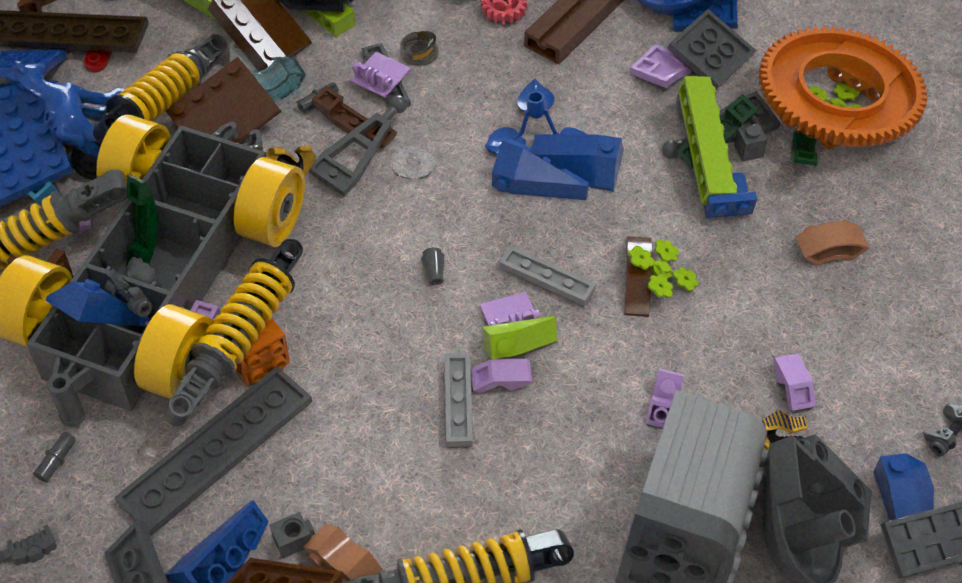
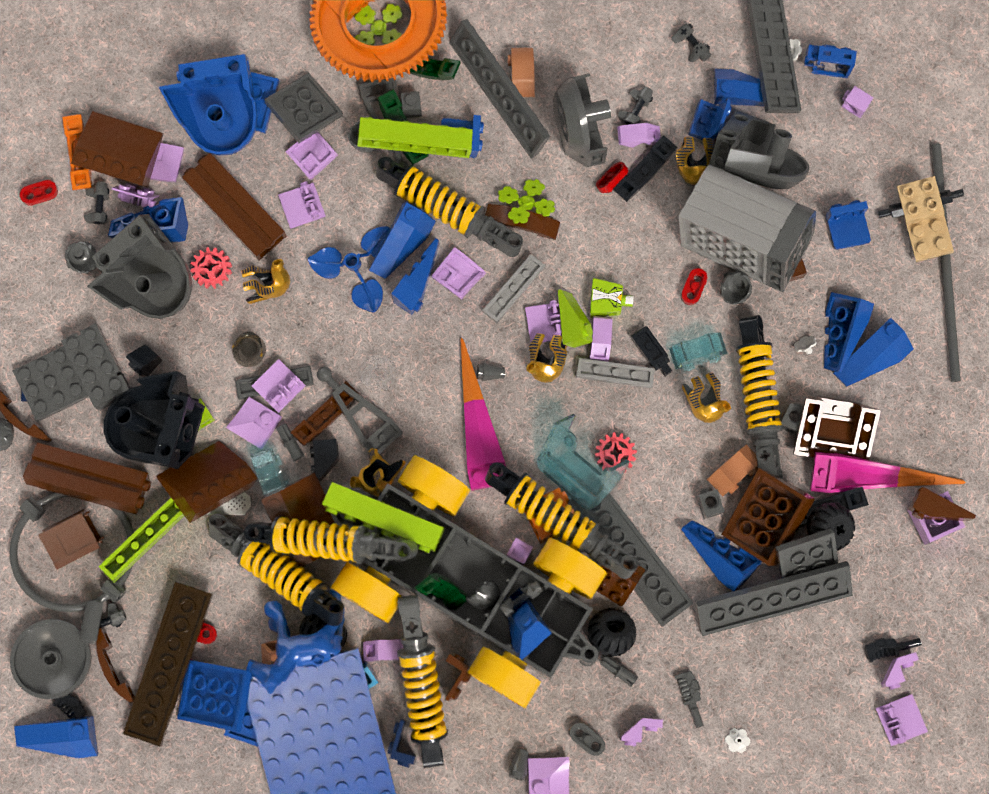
camera: 80 degrees left, 25 degrees up
(105, 424) = (612, 632): none -> black wheel
(183, 439) = (619, 589): none -> reddish brown bracket
(186, 103) = (328, 540): none -> piece
(219, 147) = (383, 517): none -> lime brick
(302, 126) = (325, 457): none -> black slope
(325, 359) = (571, 471): none -> clear light blue windscreen
(333, 273) = (481, 440): none -> dark pink plate
(334, 65) = (254, 423): none -> lavender plate
(347, 412) = (624, 452): none -> coral gear
(426, 505) = (710, 407): none -> pearl gold piece
(451, 321) = (543, 368): none -> pearl gold piece
(497, 438) = (652, 350): none -> black hinge
(500, 54) = (275, 281): none -> pearl gold piece
(507, 490) = (698, 351): none -> clear light blue brick
(552, 218) = (458, 273): none -> lavender plate
(556, 375) = (608, 299): none -> lime torso
(598, 69) = (302, 205): none -> lavender hinge
(600, 474) = (694, 287): none -> red plate
(608, 522) = (735, 287): none -> dark grey hair
(632, 190) = (447, 207): none -> piece
(665, 387) = (639, 229): lavender slope -> none
(716, 355) = (612, 177): none -> red plate
(742, 395) = (646, 169): none -> black slope
(787, 290) = (577, 121): none -> dark grey animal
(800, 221) = (499, 89): none -> dark grey plate
(848, 382) = (643, 98): none -> dark grey piece
(854, 455) = (709, 119): none -> blue bracket

